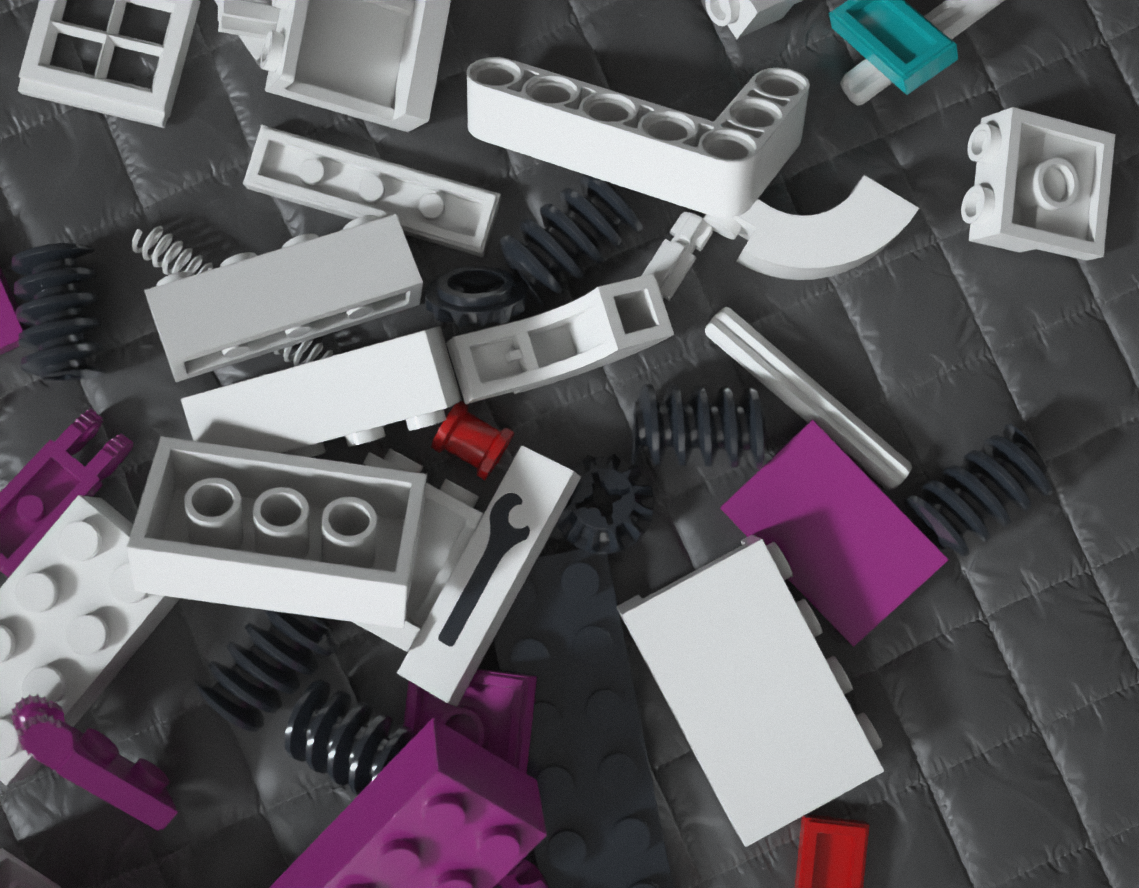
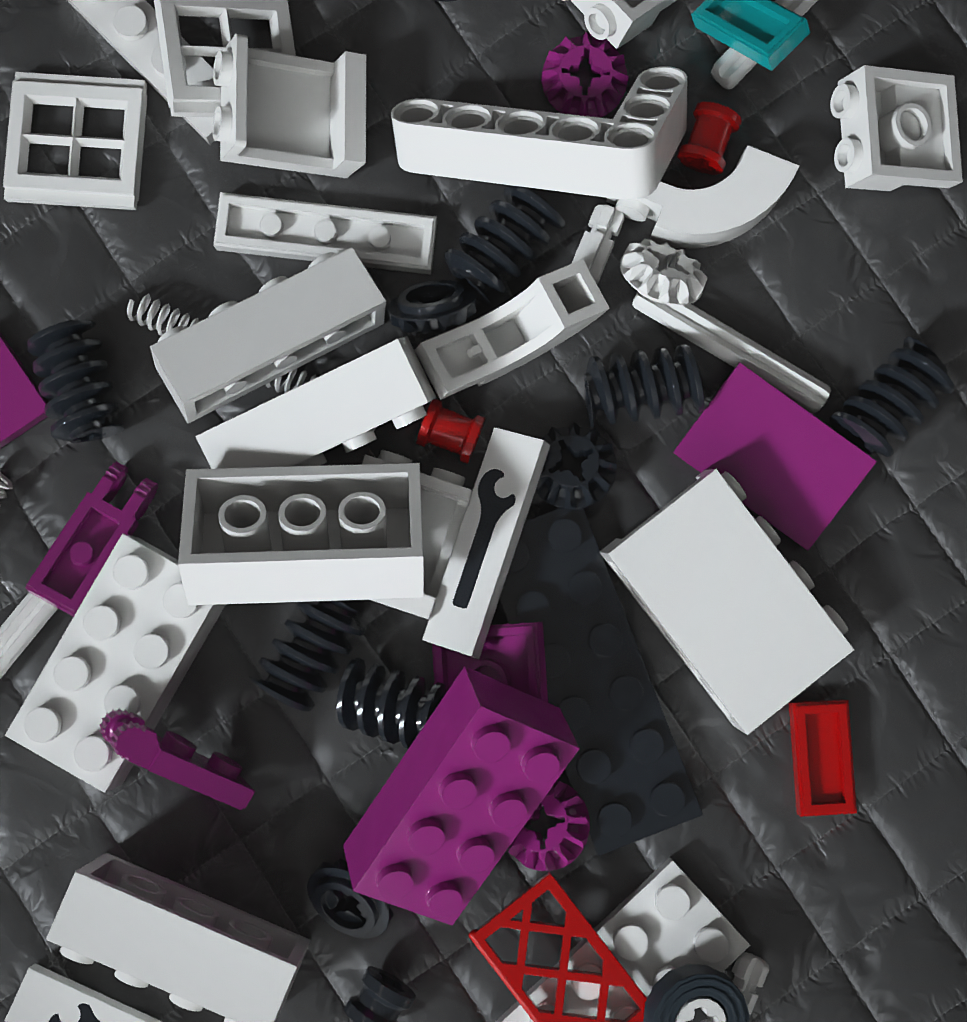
camera: 10 degrees left, 0 degrees up
(671, 77) = (565, 90): none -> magenta gear
(758, 319) = (679, 276): none -> white gear
(824, 157) = (709, 138): none -> red bush

